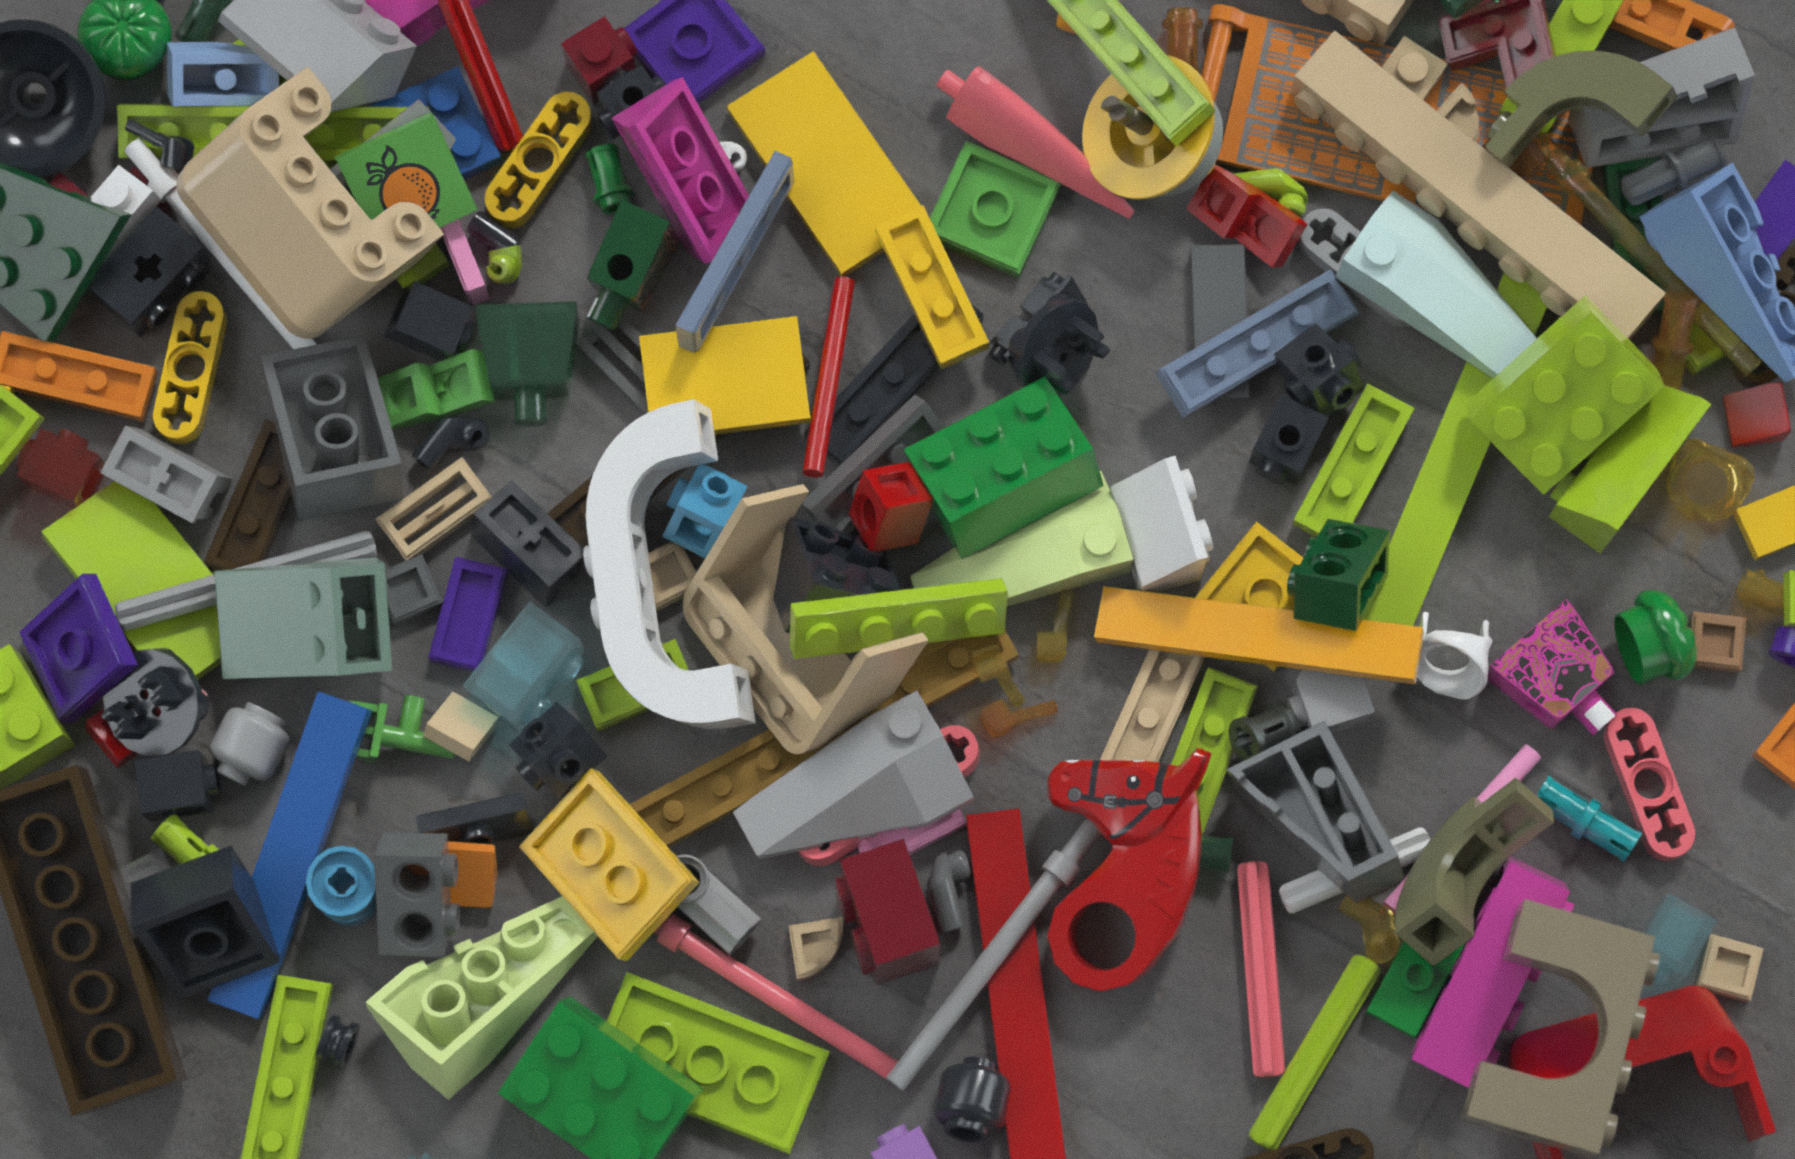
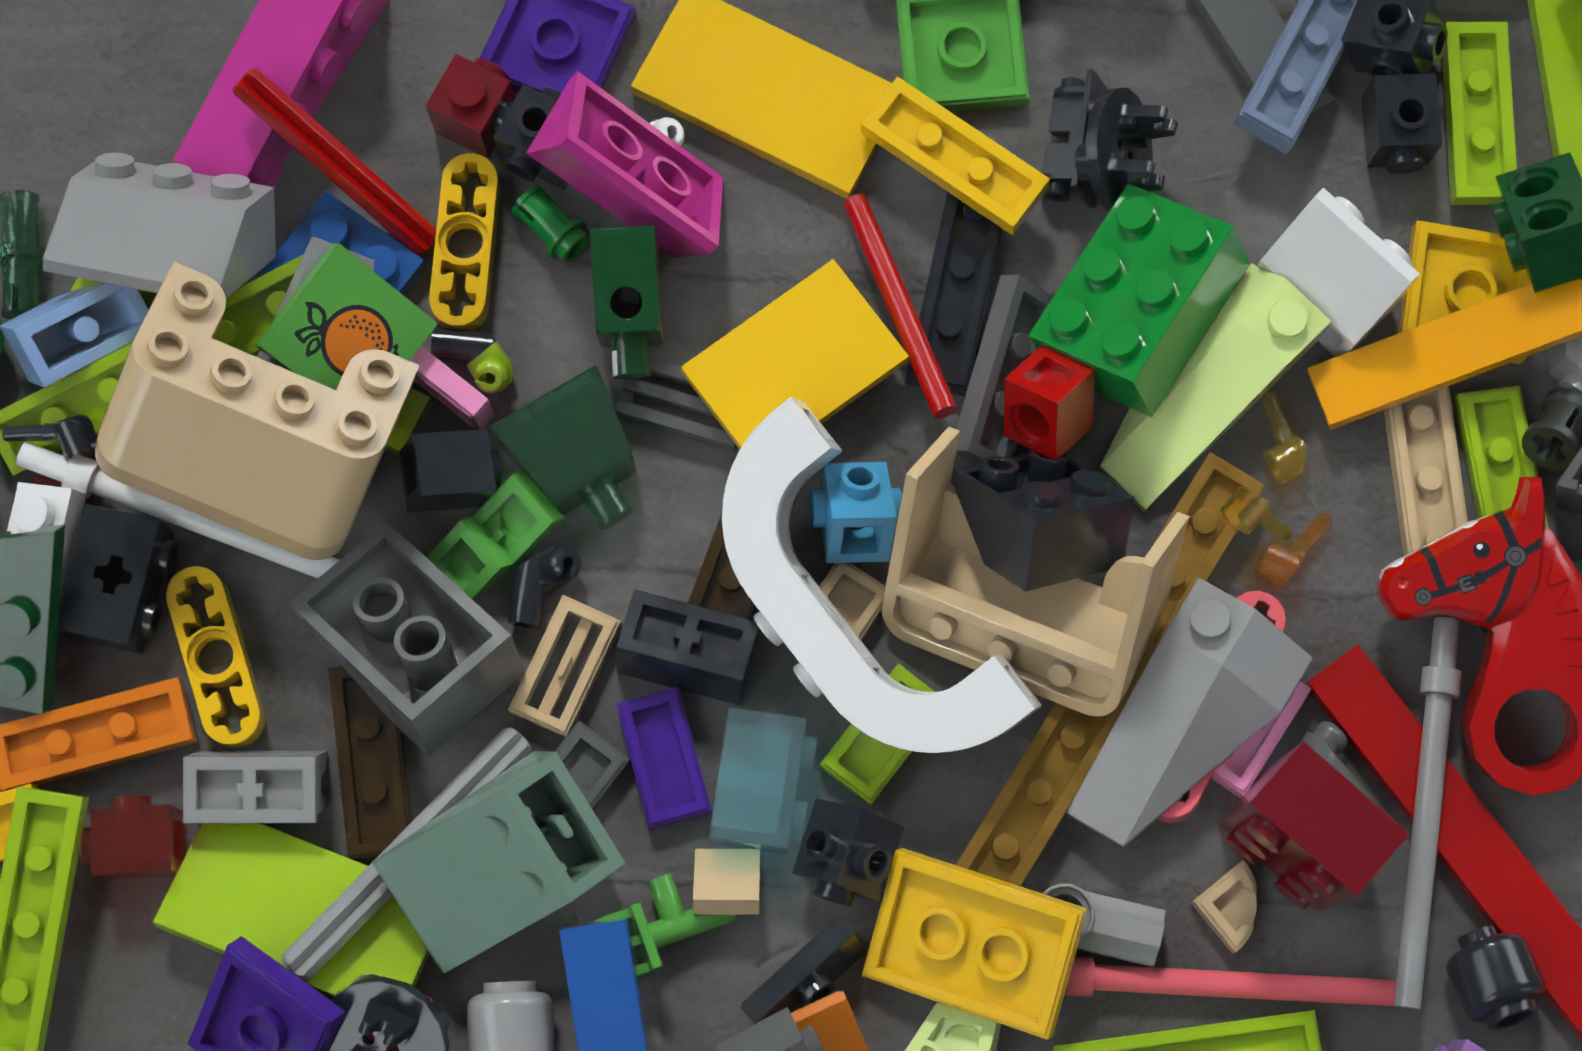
camera: 30 degrees left, 0 degrees up
(735, 252) = (734, 226): sand blue tile -> none
(877, 618) = (1131, 513): lime plate -> none

